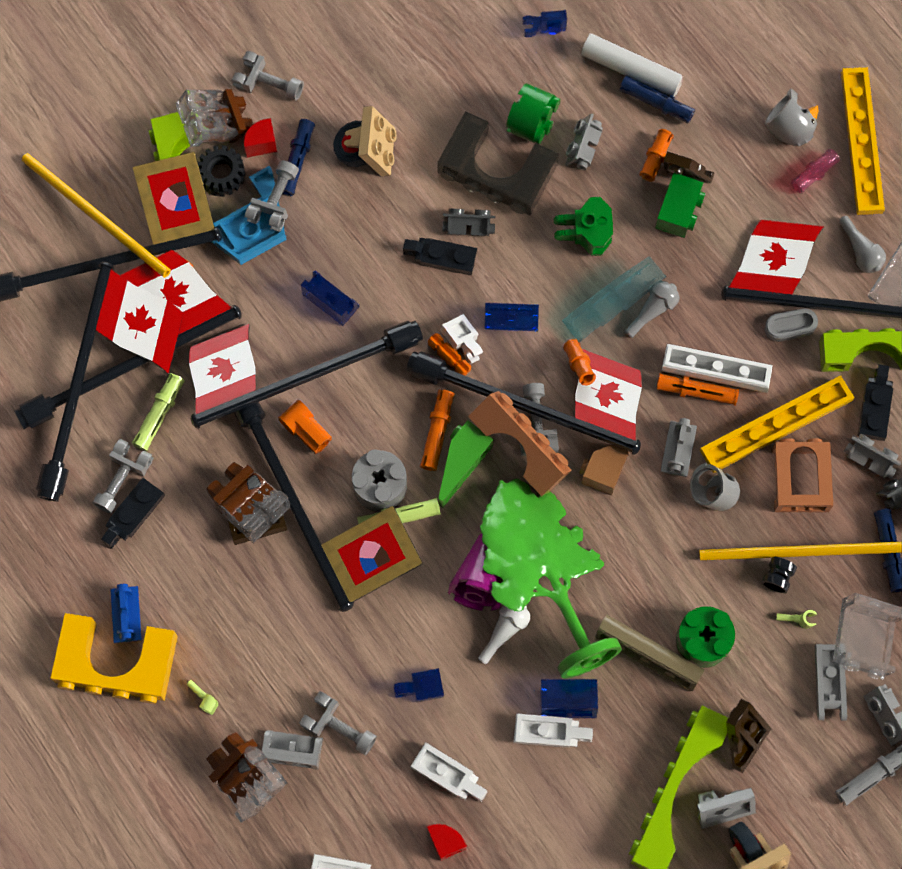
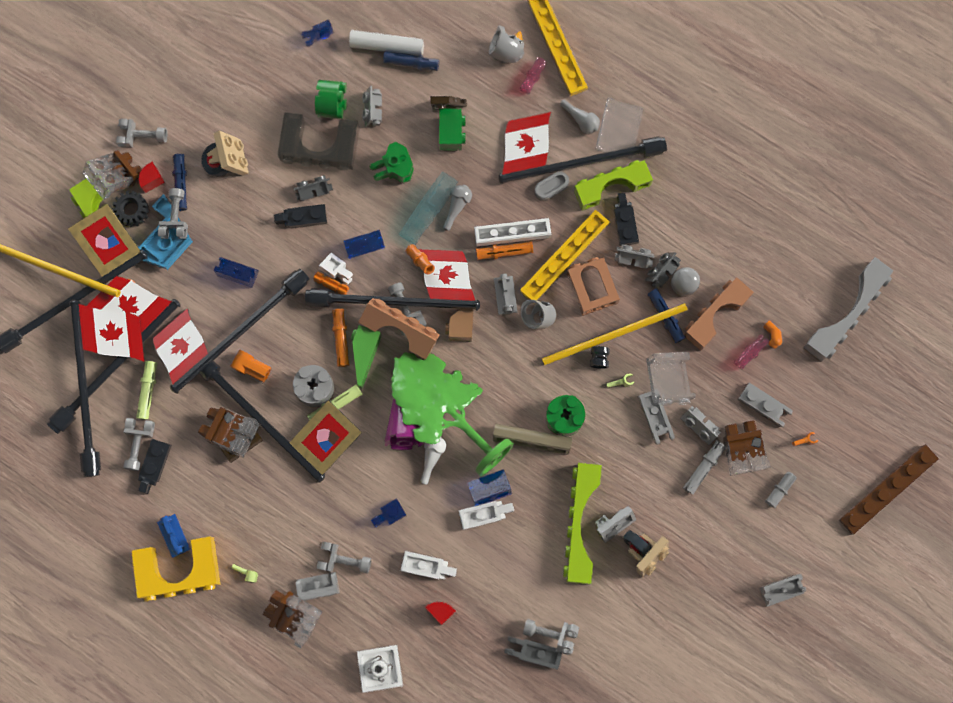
camera: 20 degrees left, 5 degrees up
(656, 155) = (423, 99): orange pin -> none
(745, 734) = (612, 471): dark brown wing -> none

